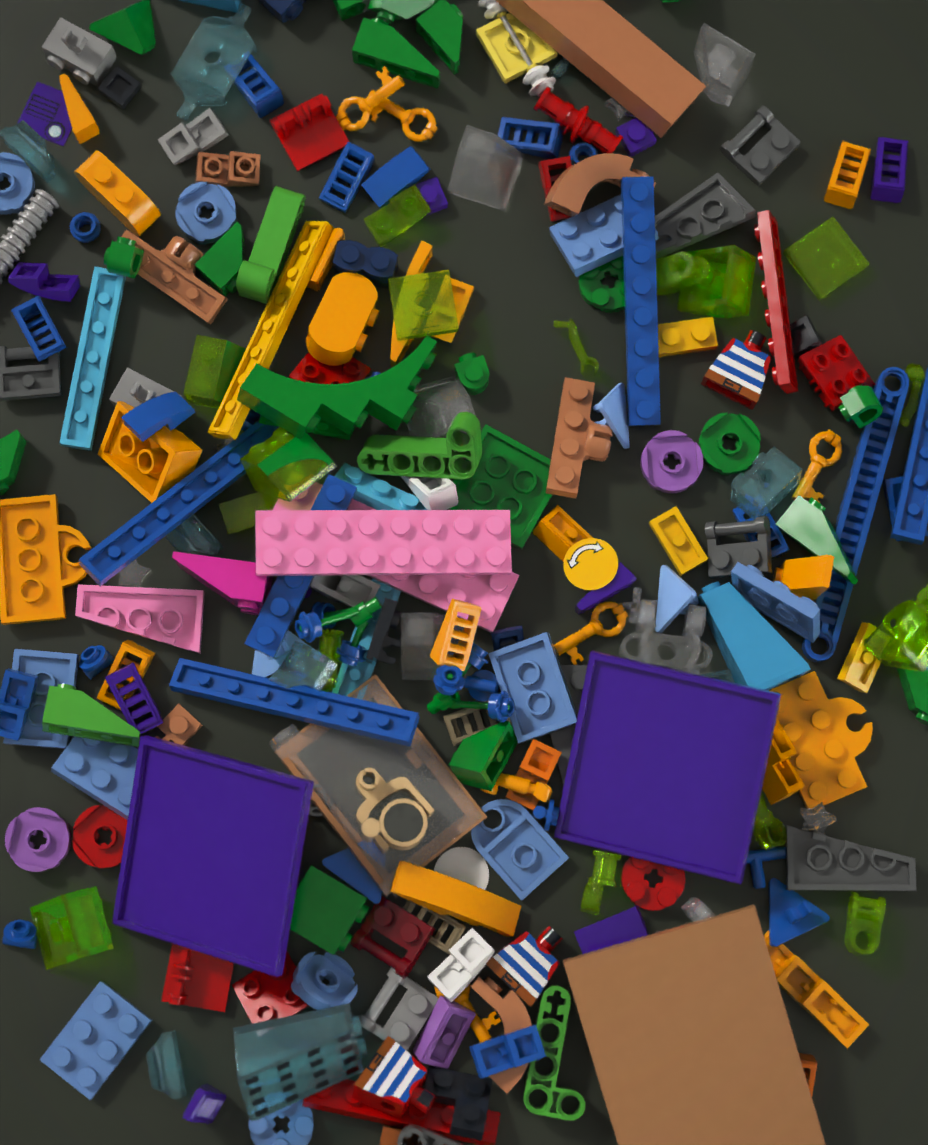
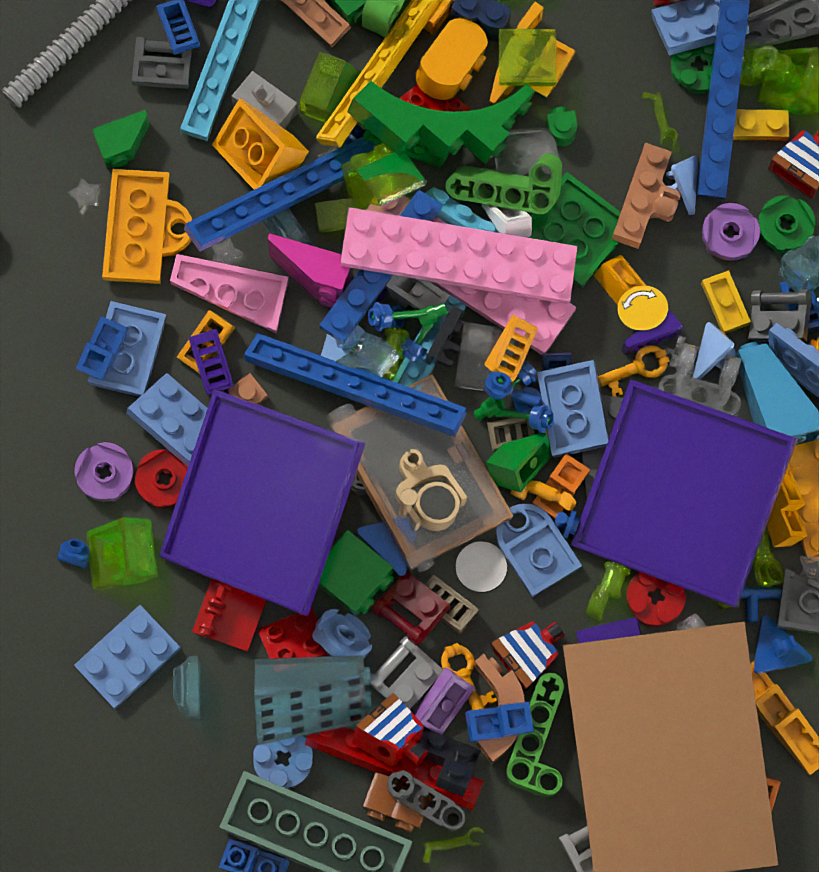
camera: 10 degrees right, 5 degrees down
(79, 715) = (163, 367): bright green slope -> none
(95, 660) = (180, 324): blue plate -> none
(156, 413) = (272, 112): blue slope -> none
(204, 1104) = (217, 726): dark purple slope -> none
(455, 898) = (474, 581): light orange slope -> none
(462, 966) = (468, 644): white slope -> none

